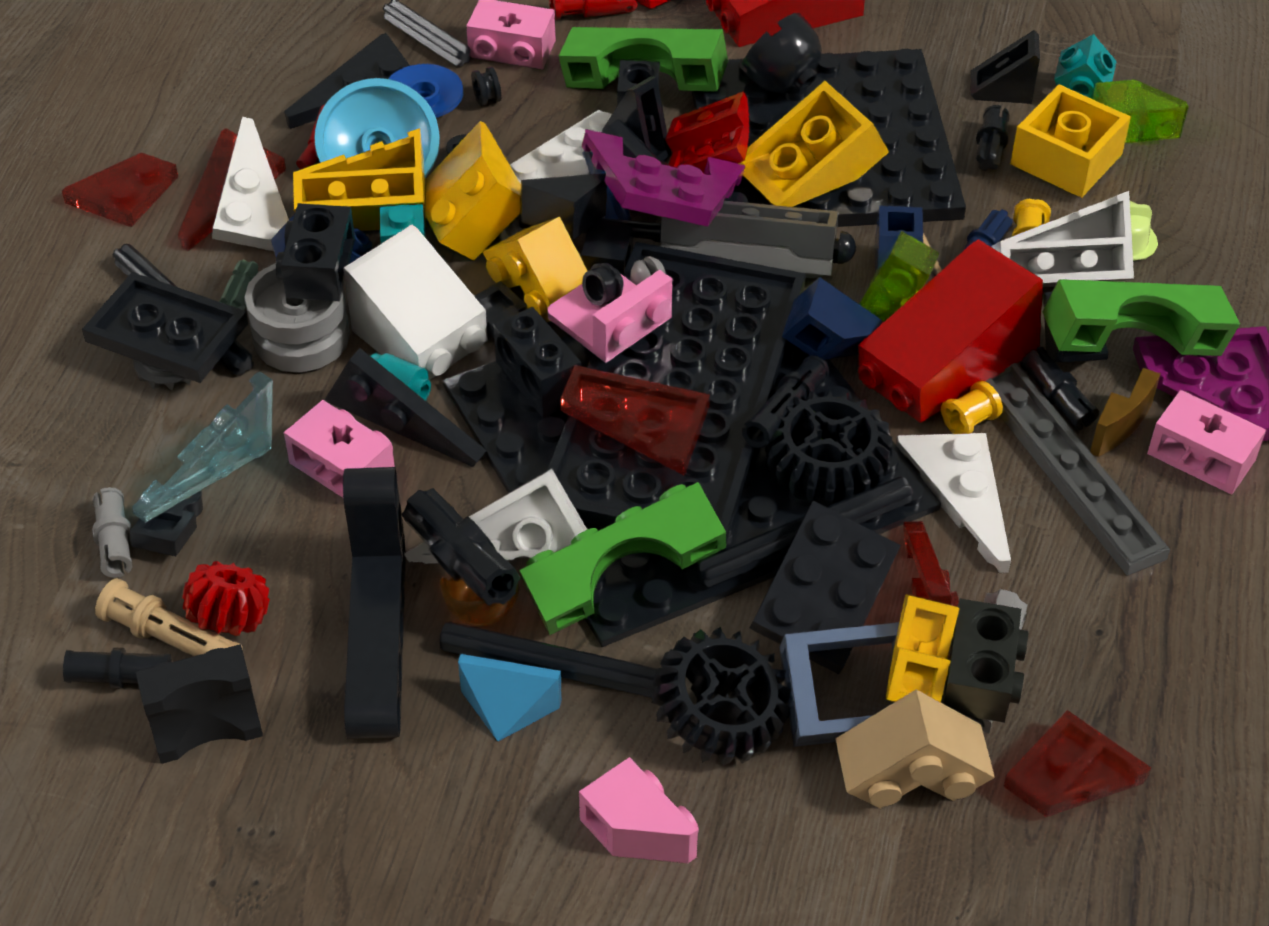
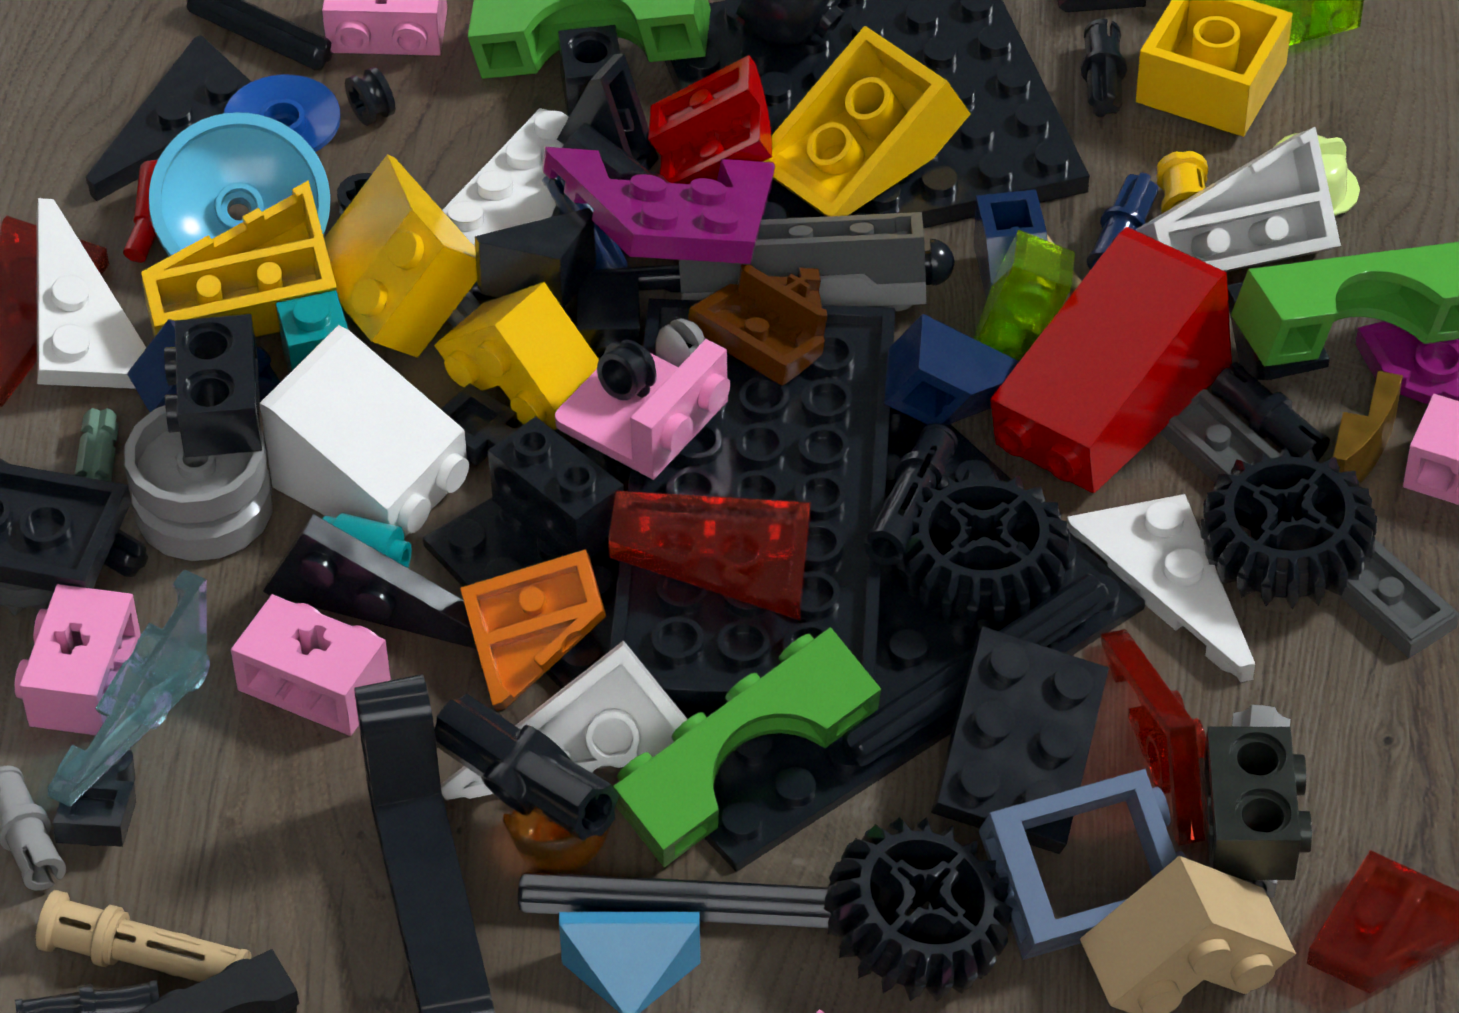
camera: 10 degrees left, 0 degrees up
(177, 418) = (76, 657): none -> bright pink brick
(225, 598) = (214, 892): red gear -> none
(497, 447) = (531, 621): none -> orange wing
(712, 268) = (767, 321): none -> reddish brown slope
(921, 648) = (1172, 801): yellow slope -> none
(972, 408) = (1159, 463): yellow bush -> none
(1055, 477) = (1294, 544): none -> black gear

